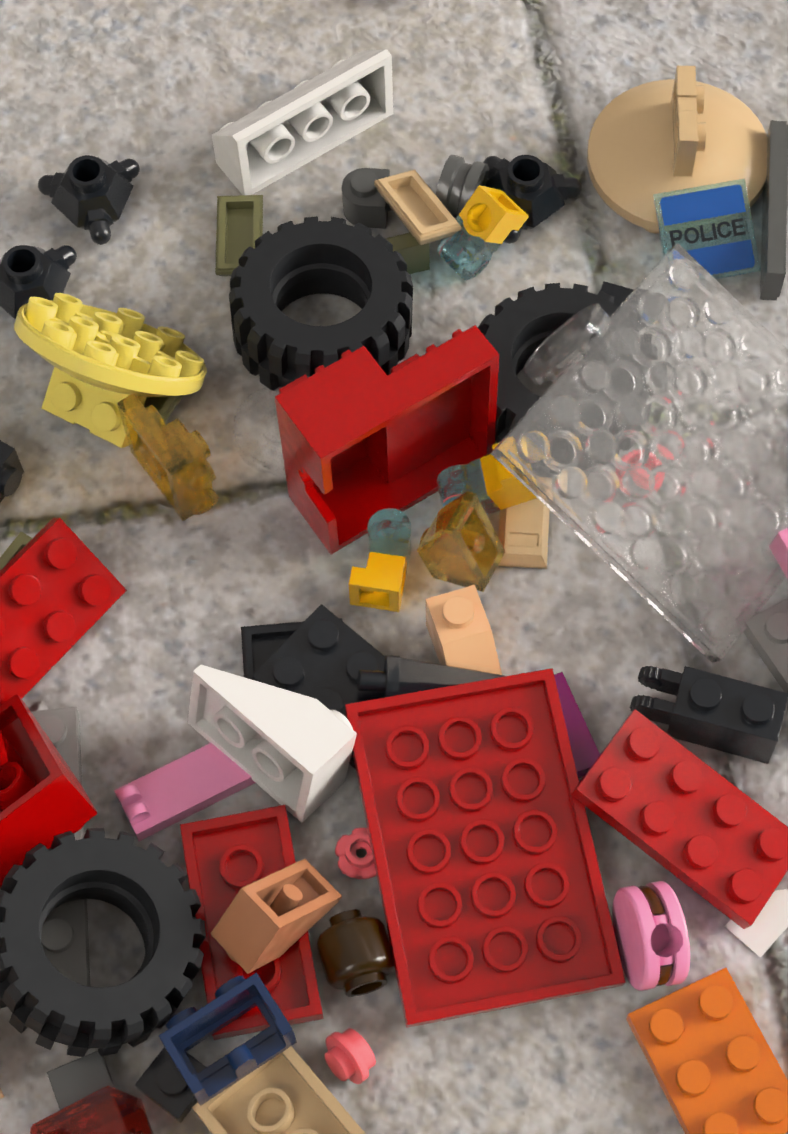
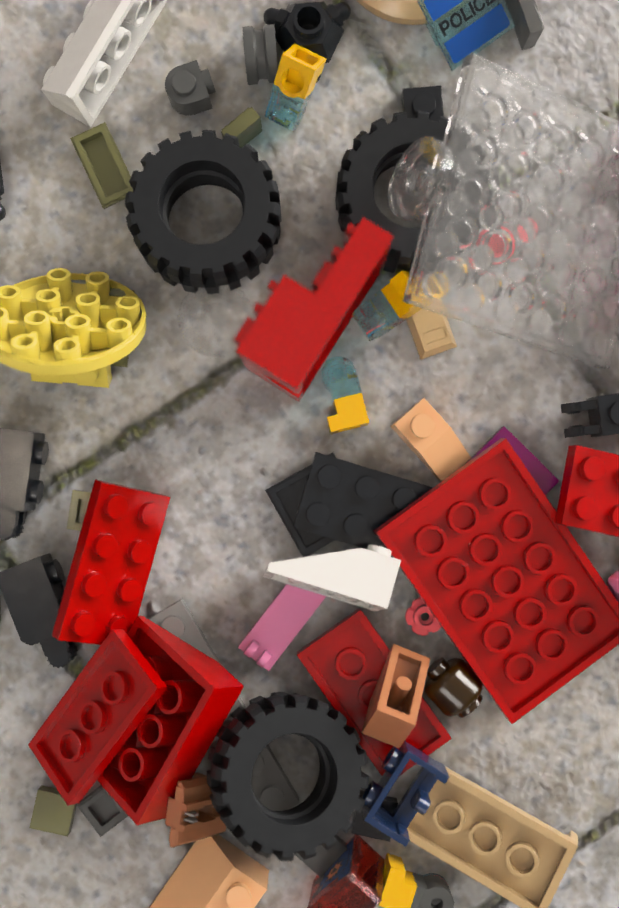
camera: 25 degrees left, 25 degrees up
(170, 457) = (162, 392): clear yellow plate -> none
(349, 1056) = (479, 755): coral plate -> none
(411, 676) = (412, 485): black bar -> none
(417, 207) = (237, 89): tan tile -> none
(462, 544) = (395, 365): clear yellow slope -> none

